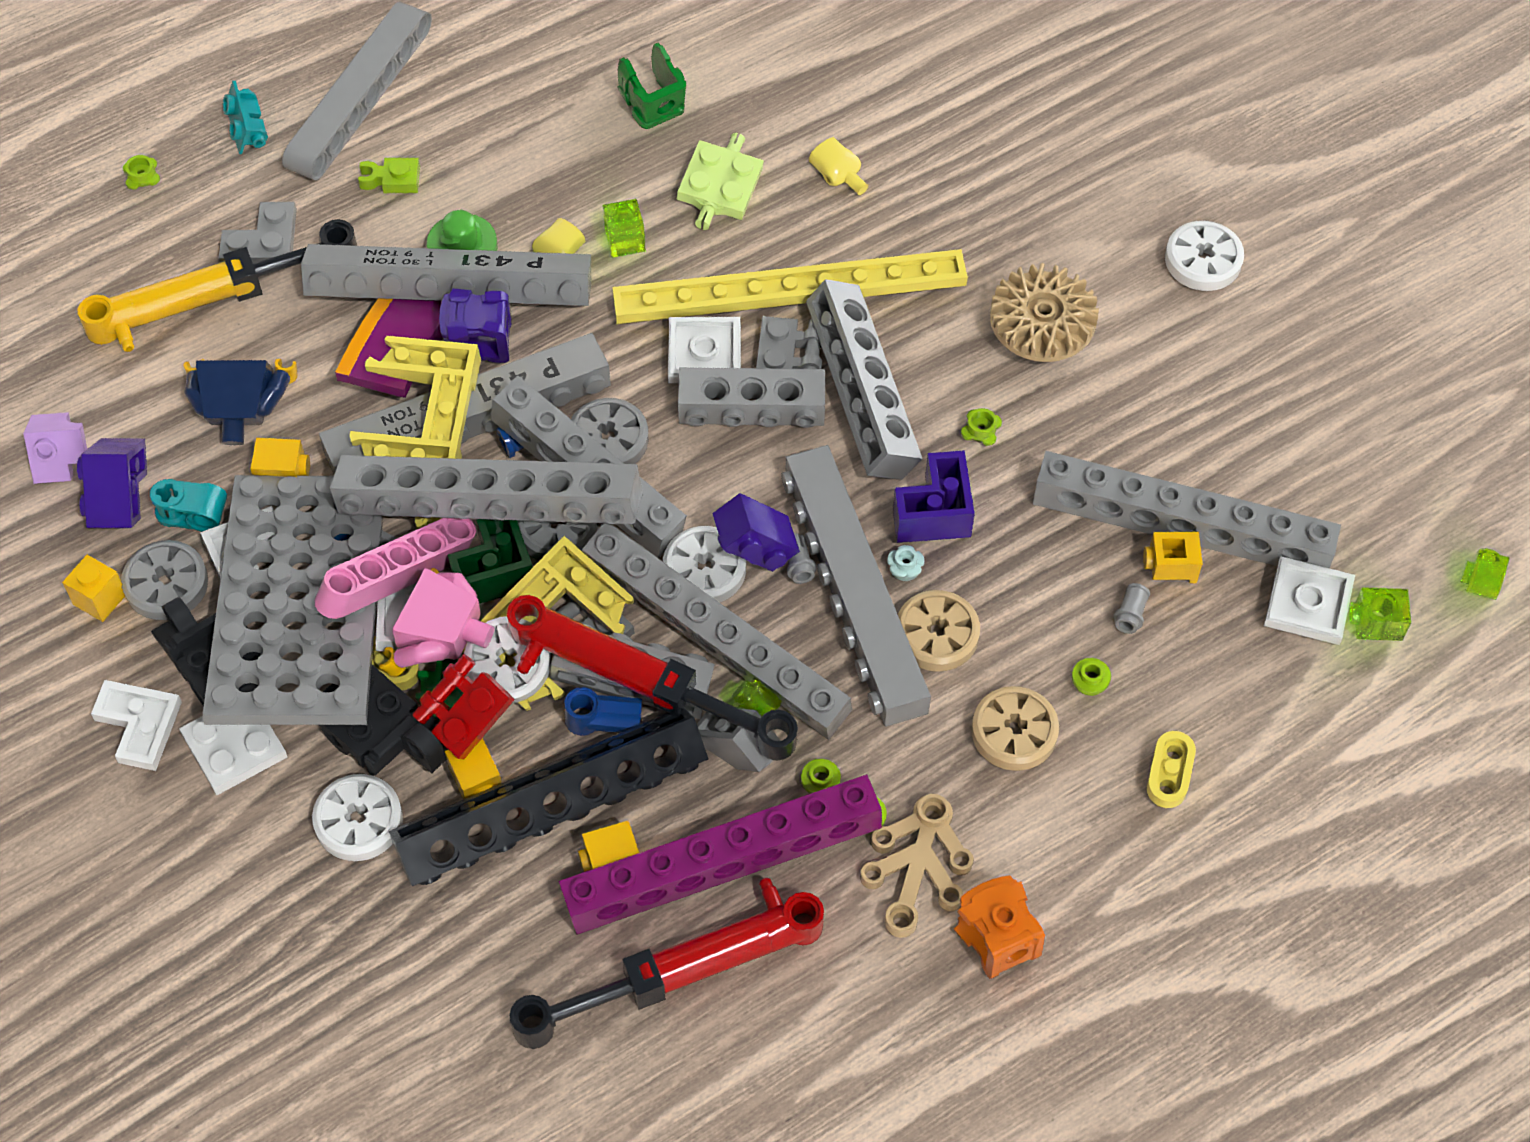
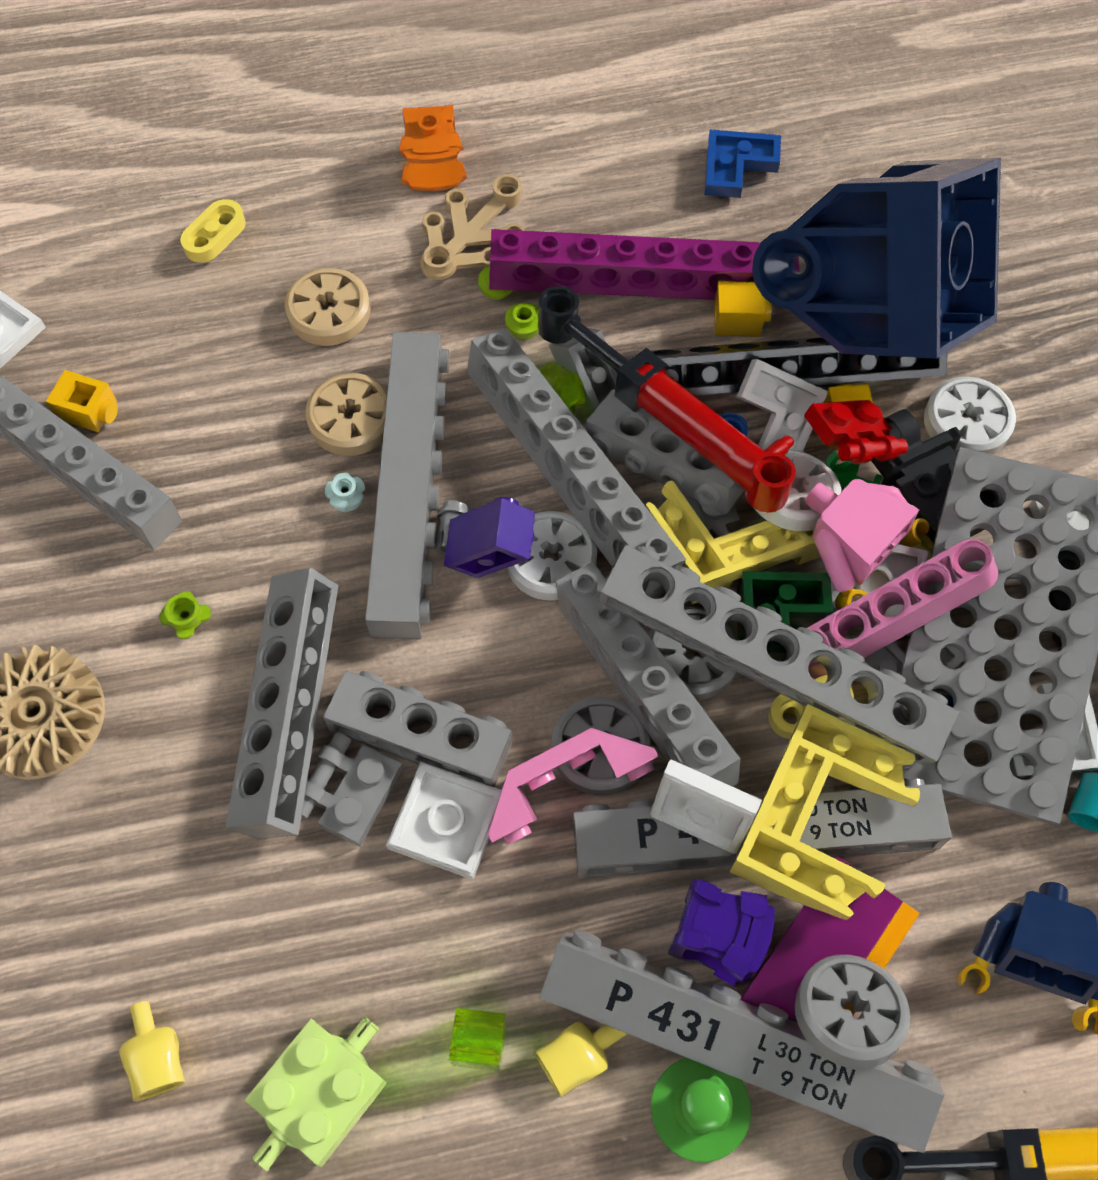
camera: 160 degrees left, 5 degrees up
(279, 458) = (1001, 831): yellow brick -> none
(383, 272) = (833, 1030): none -> light grey wheel
(419, 849) = (893, 259): none -> dark blue brick
(502, 362) = (704, 807): none -> white plate
(535, 742) = (784, 398): none -> white plate
(609, 407) = (514, 809): none -> bright pink slope
(655, 974) = (738, 207): red piece -> none
(677, 1054) = (738, 151): none -> blue plate
(786, 286) = (308, 875): light yellow plate -> none
(941, 506) = (281, 516): dark purple brick -> none
(1088, 685) = (234, 337): lime plate -> none
(1129, 616) = (155, 374): light grey pin -> none

